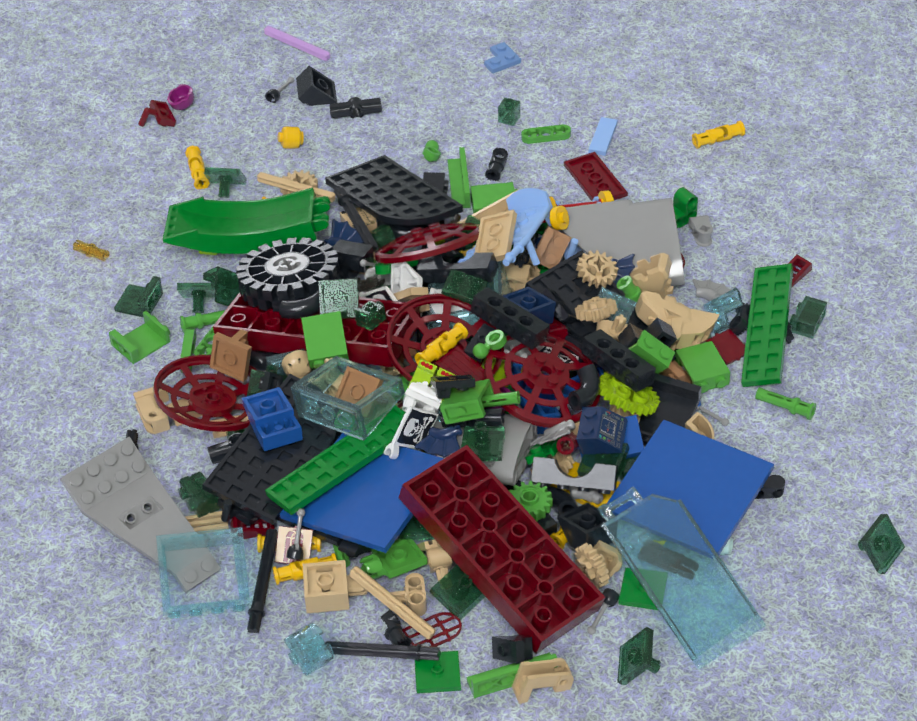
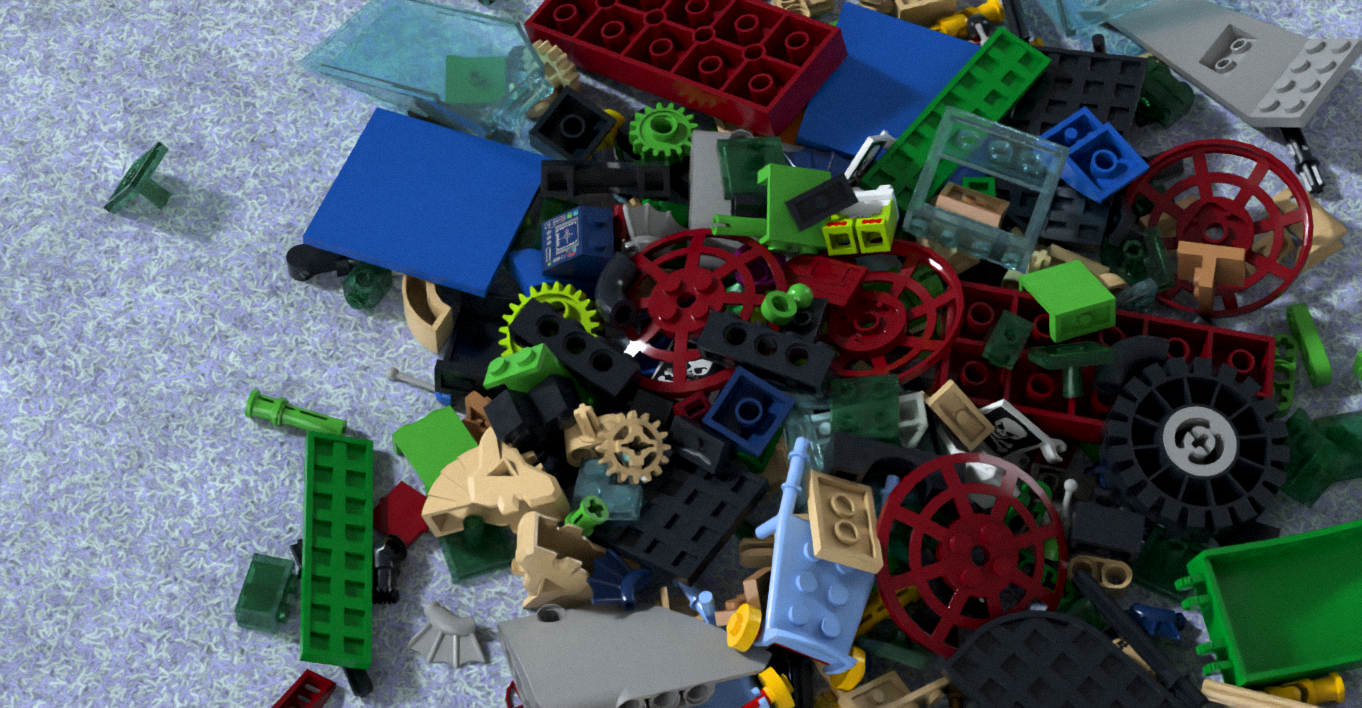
camera: 165 degrees right, 10 degrees up
(199, 321) = (1328, 401): bright green pin -> none
(441, 345) = (864, 285): yellow piece -> none
(597, 269) = (633, 538): tan gear -> none
(722, 306) = (425, 577): clear light blue plate -> none

